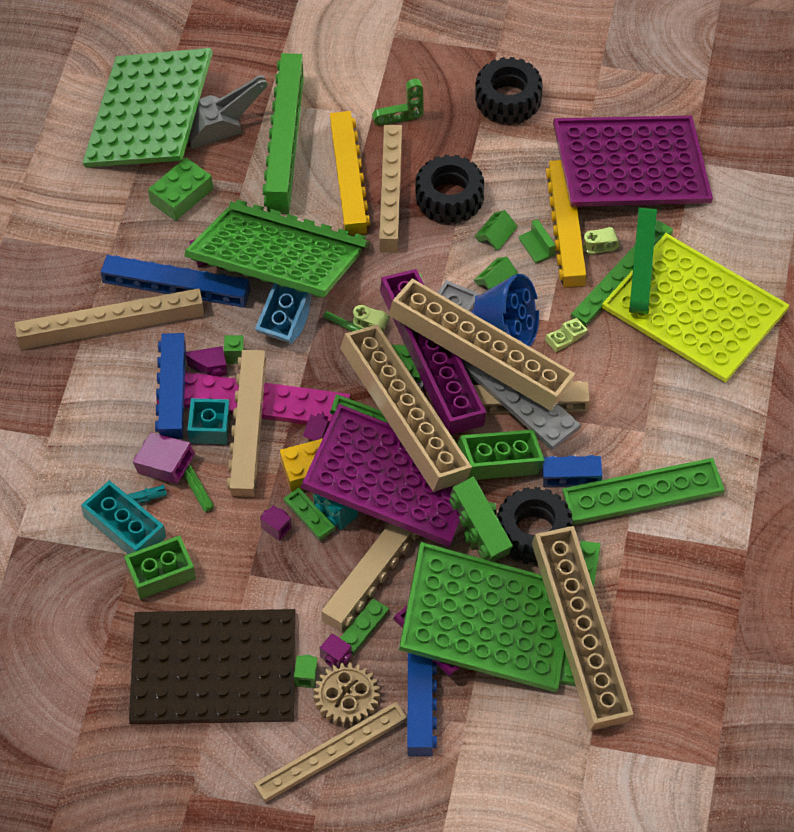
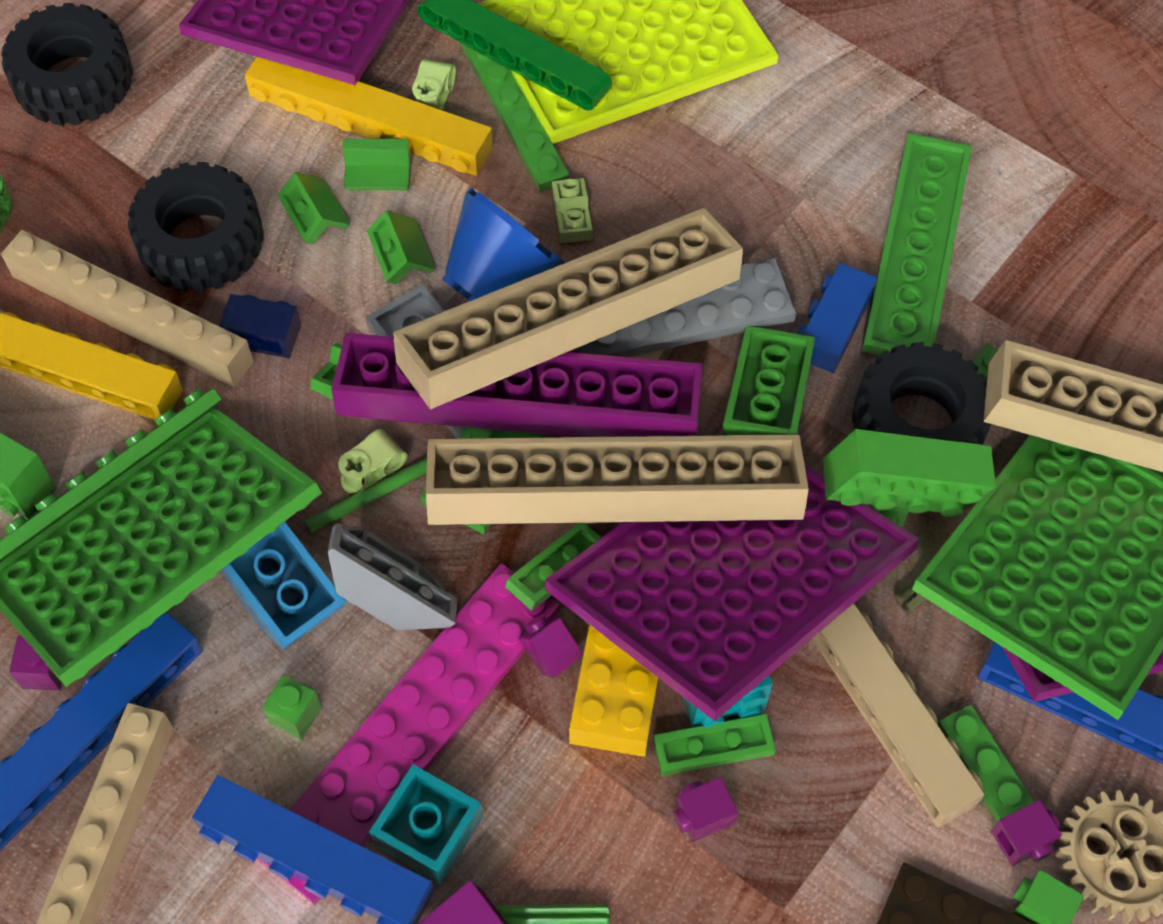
camera: 65 degrees left, 5 degrees up
(208, 361) = (291, 763): magenta slope -> none
(248, 423) = (474, 756): tan brick -> none
(311, 350) = (387, 581): none -> light grey wedge
(415, 242) = (265, 324): none -> clear blue brick

